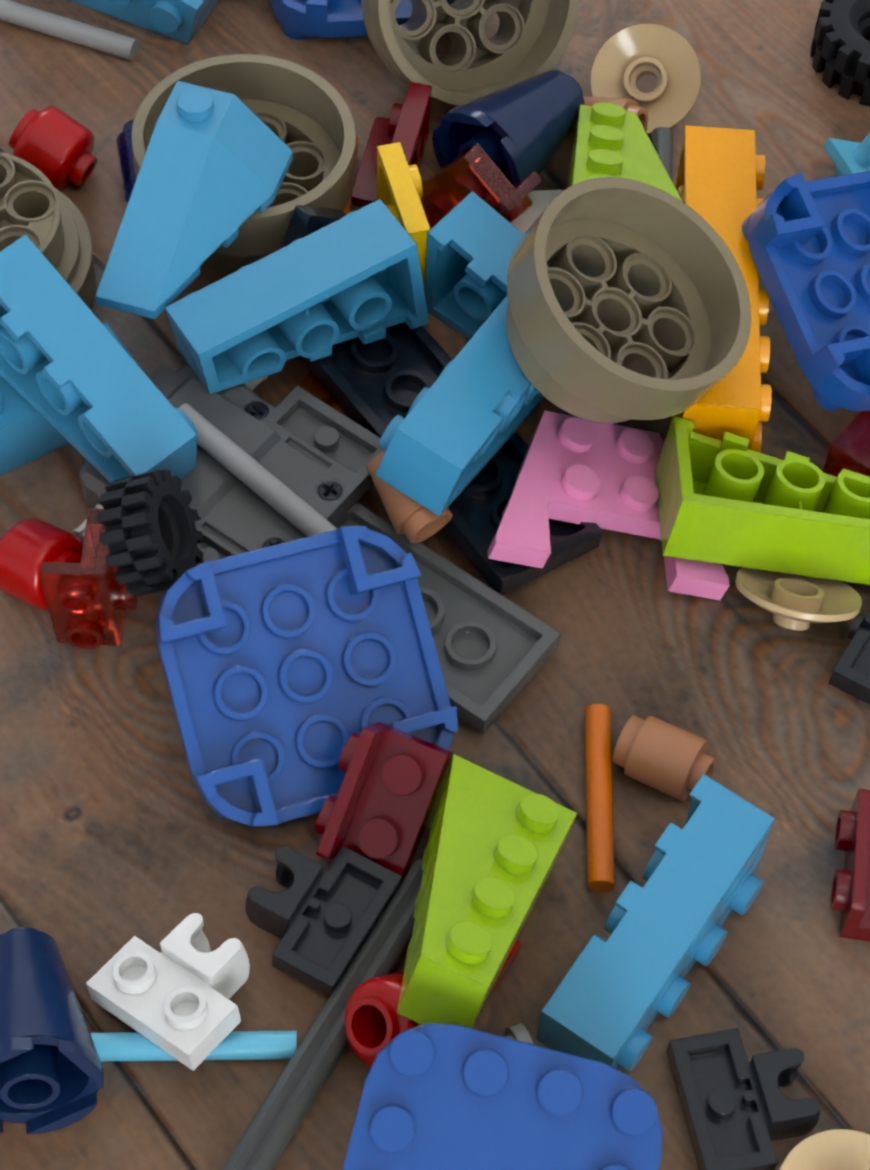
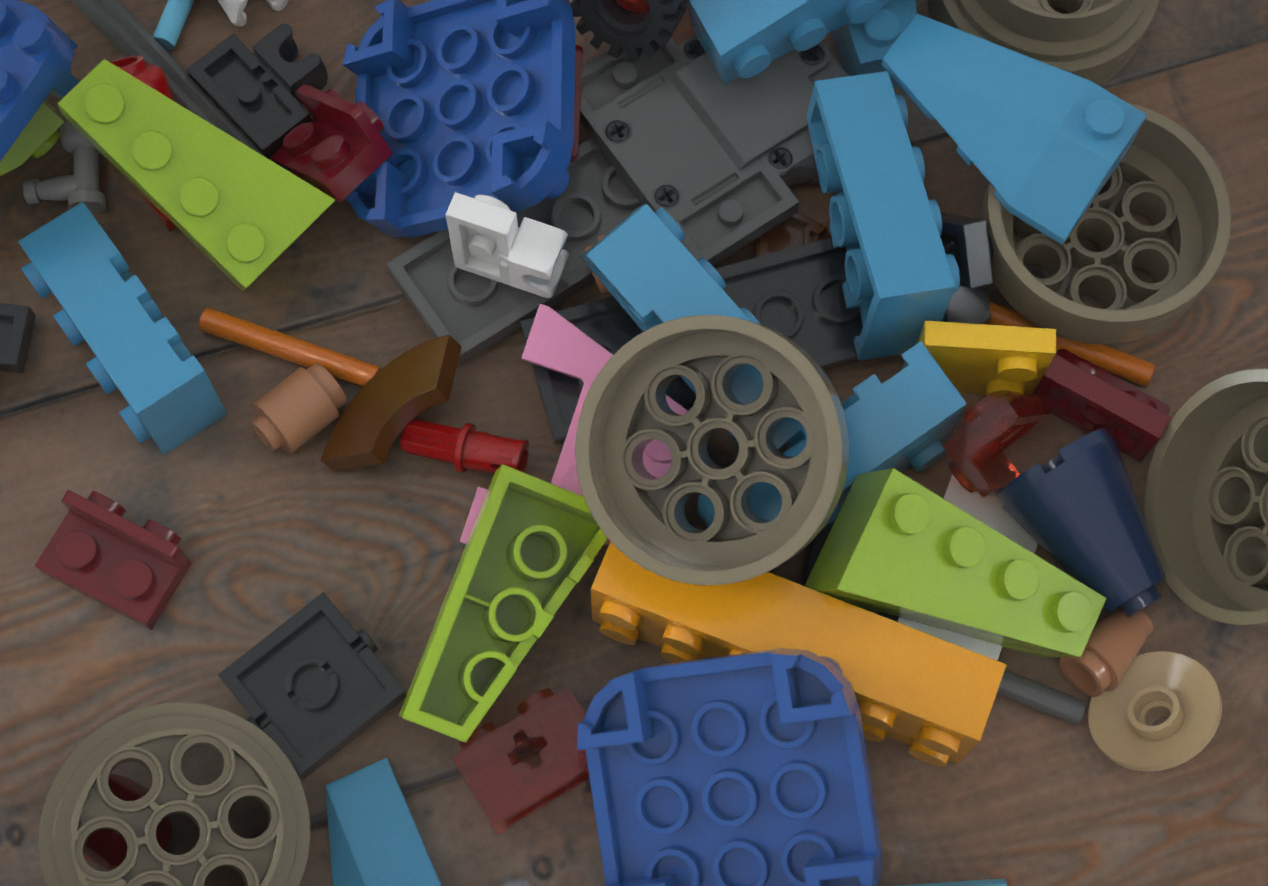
camera: 110 degrees right, 15 degrees up
(55, 146) = (1189, 79): red head -> none
(257, 477) = (674, 134): light grey bar -> none
(453, 569) = (492, 245): none -> white plate
(623, 674) = (390, 402): none -> reddish brown tile
(638, 607) = (464, 446): none -> red axle
(799, 598) = (410, 557): tan dish -> none

